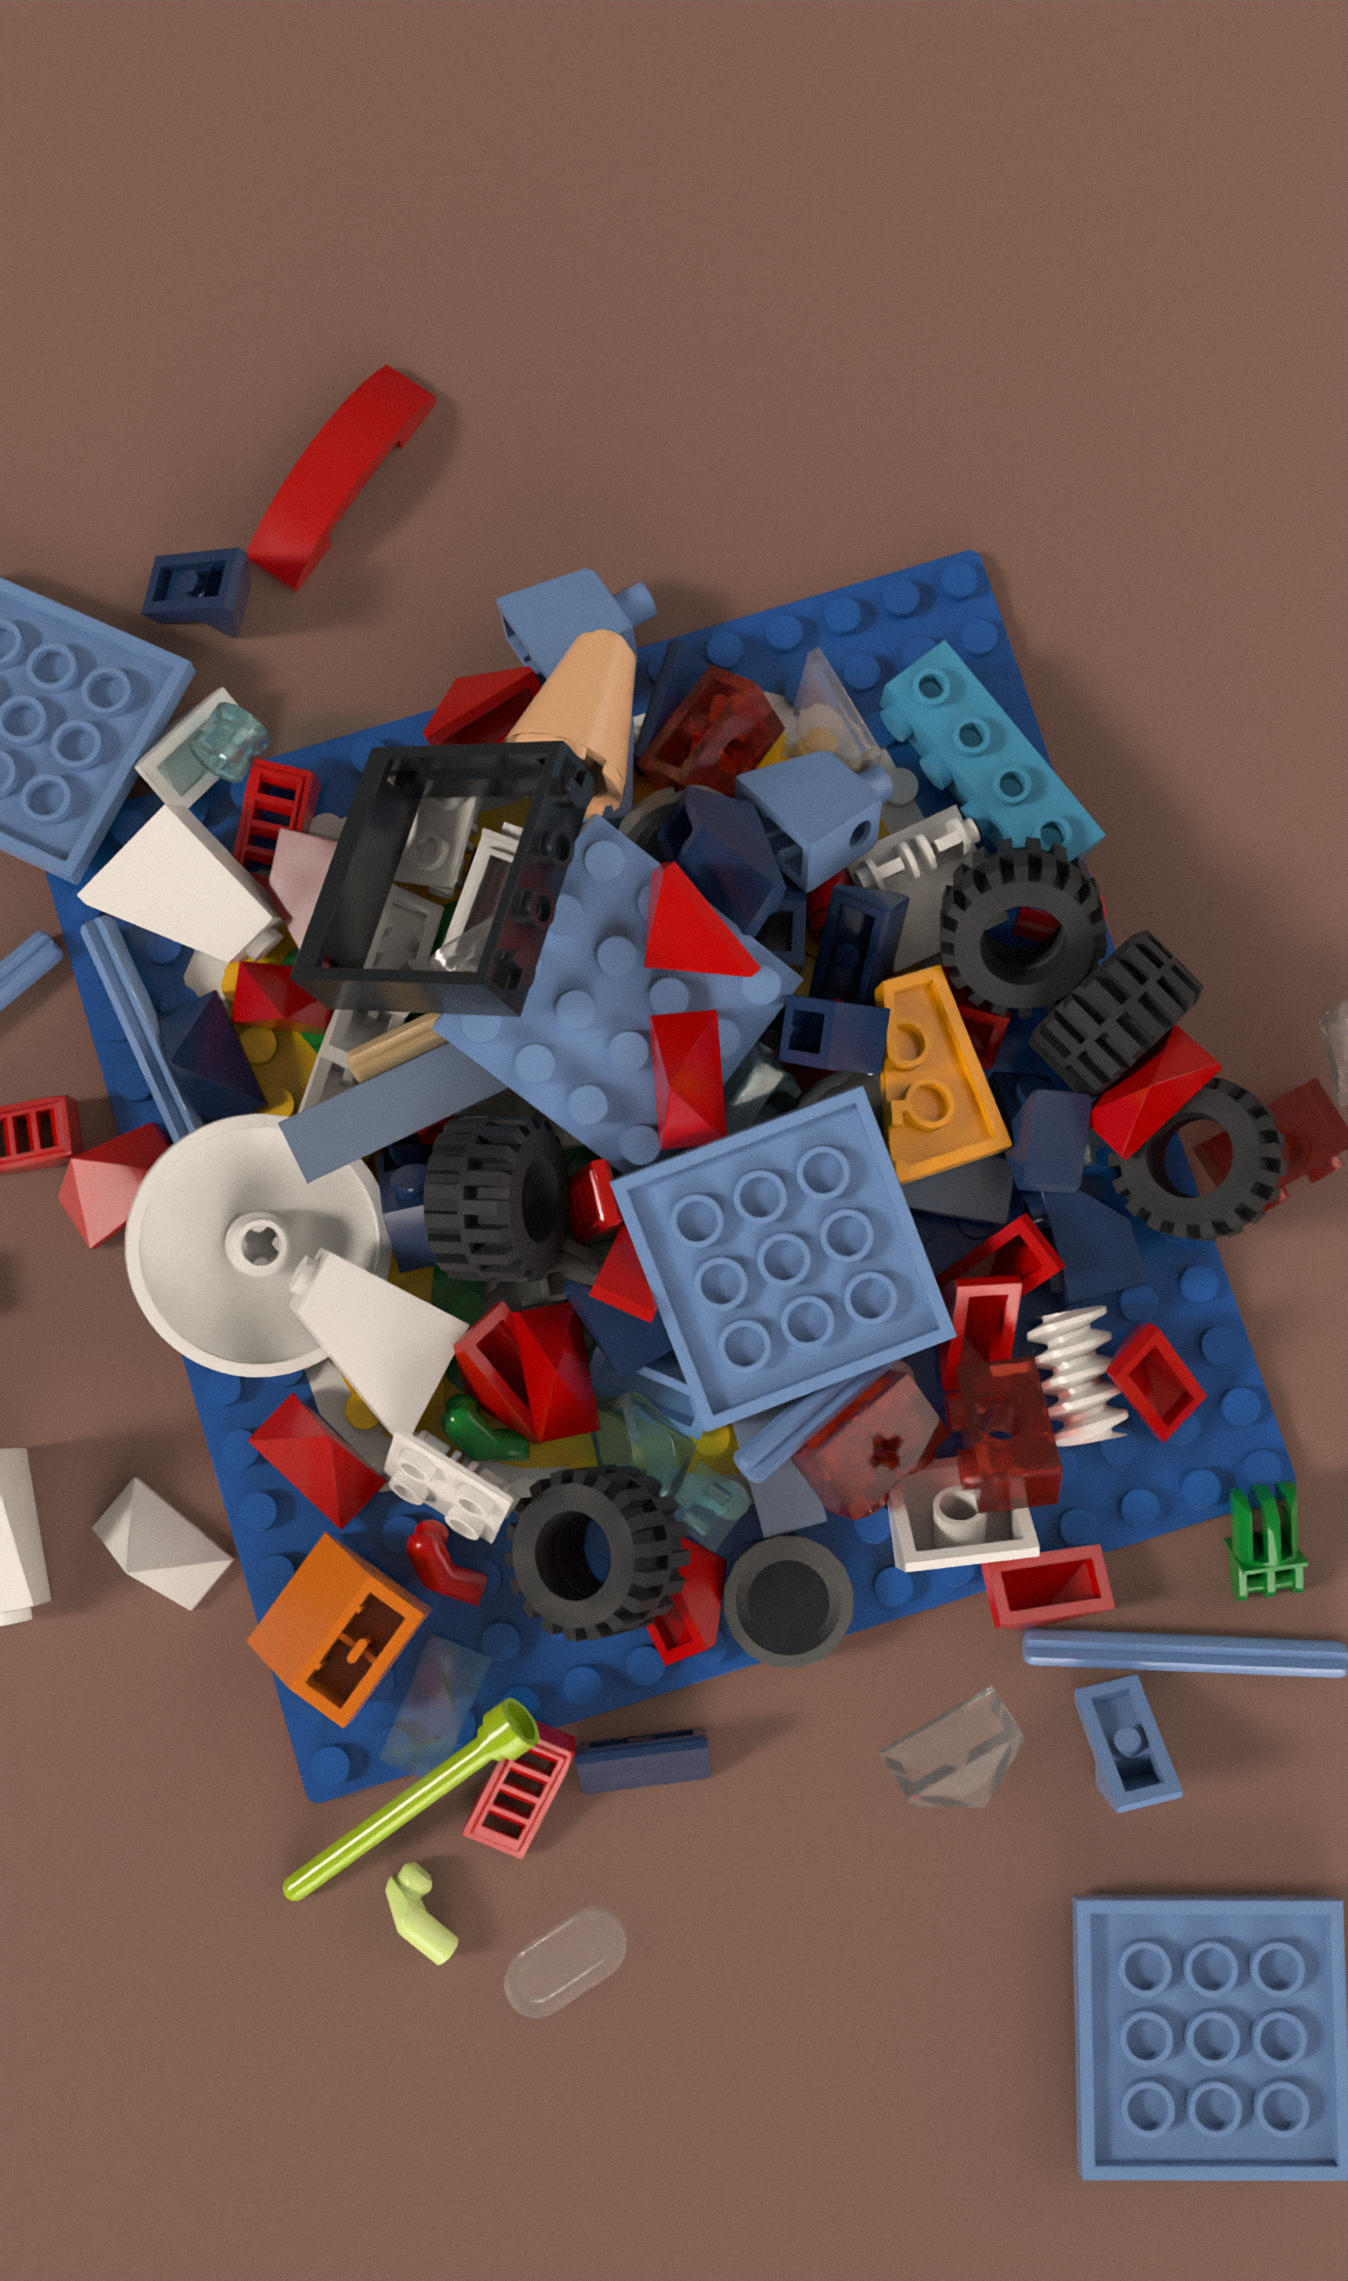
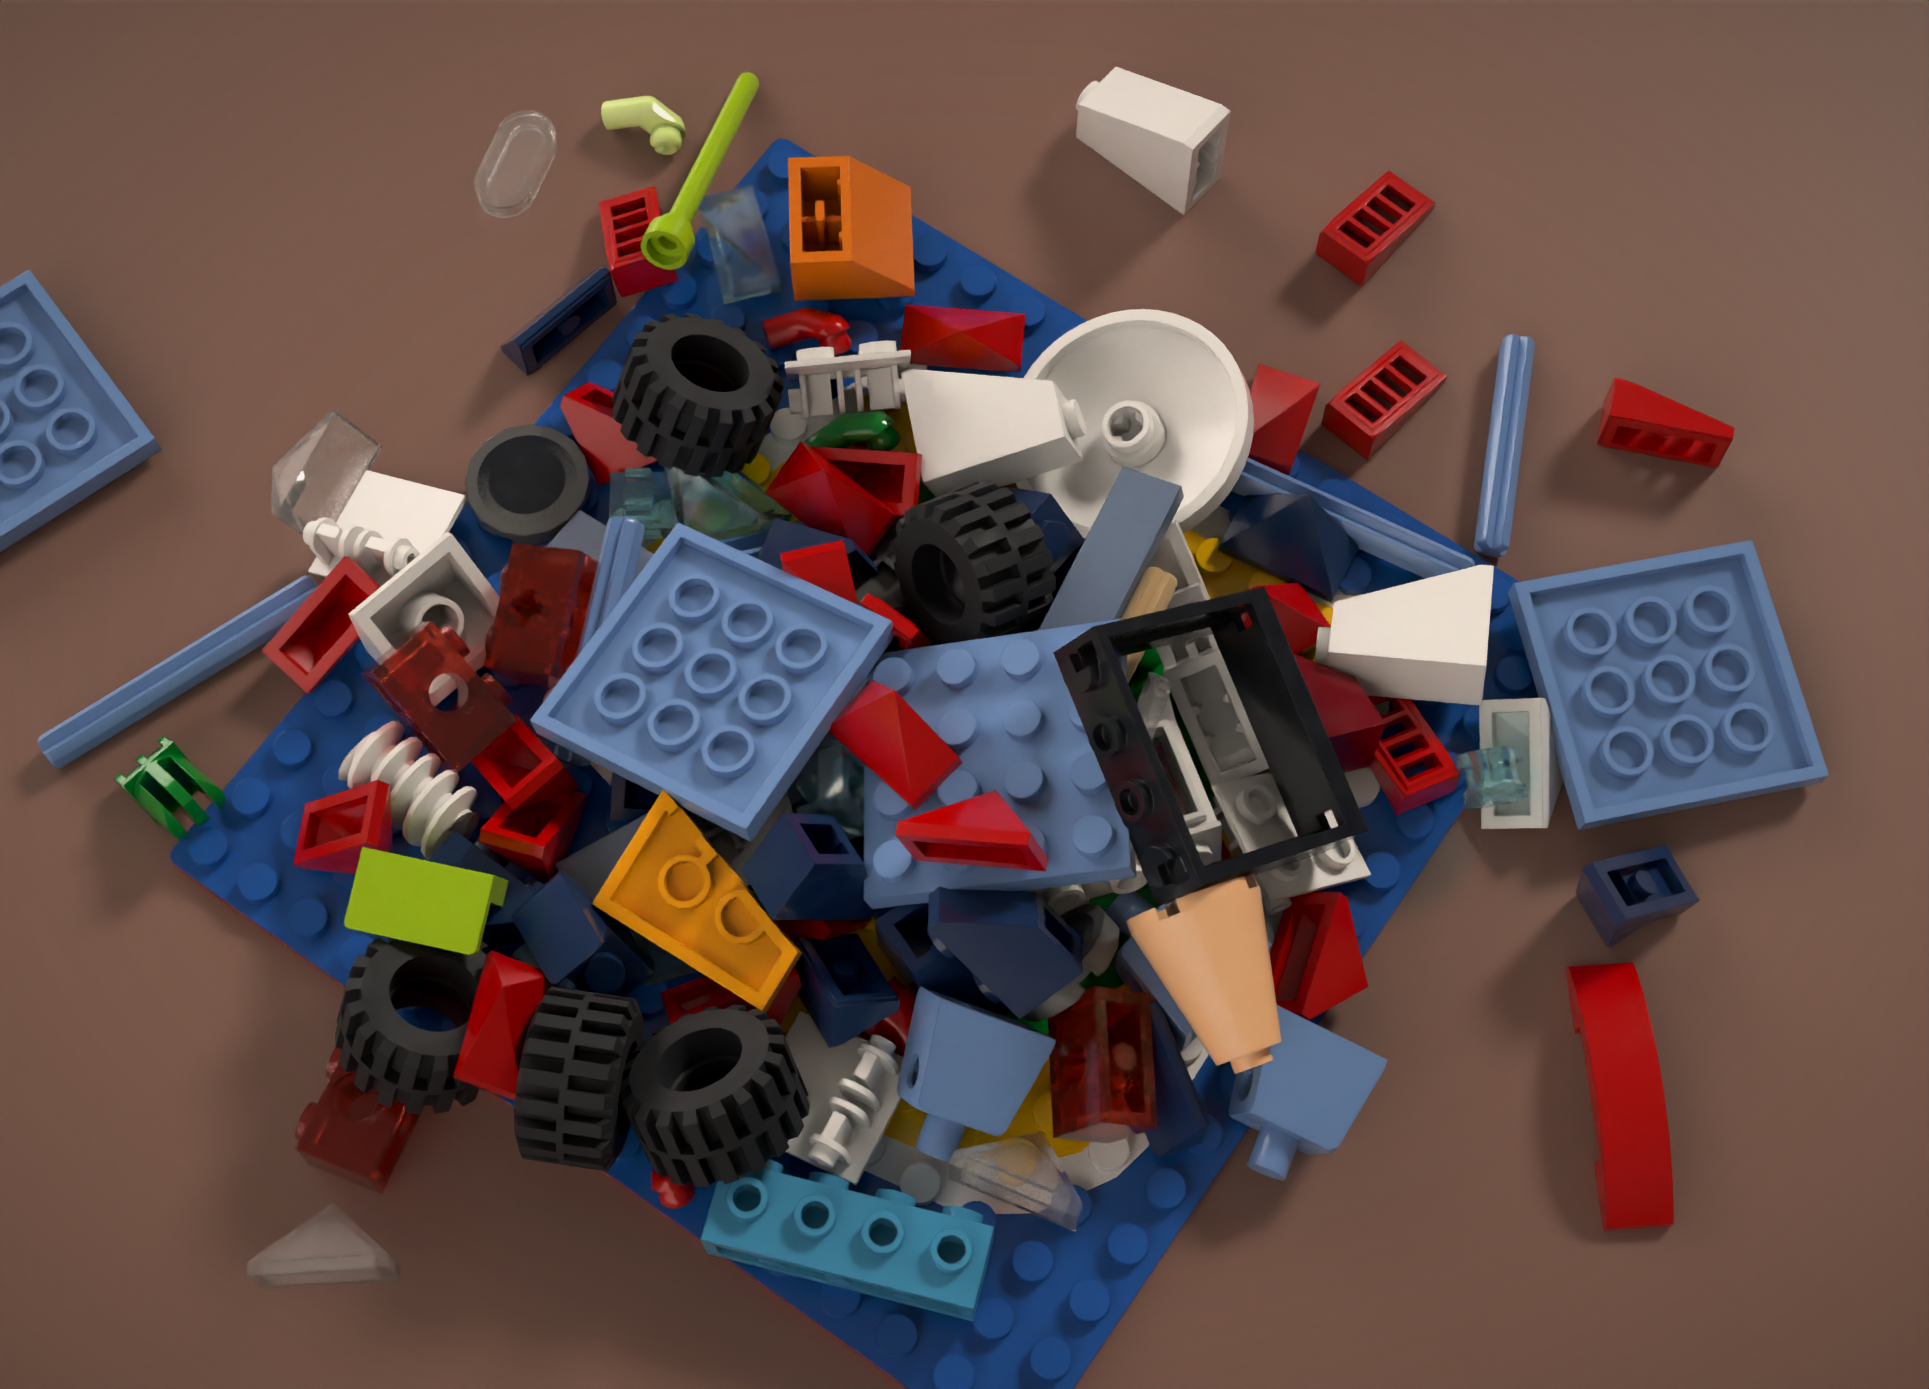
camera: 145 degrees right, 15 degrees down
(161, 1545) = (1029, 213): white slope -> none
(937, 1649) = (382, 526): none -> white hinge
(1126, 1745) = (185, 560): medium blue slope -> none
(1144, 1243) = (422, 901): none -> lime panel

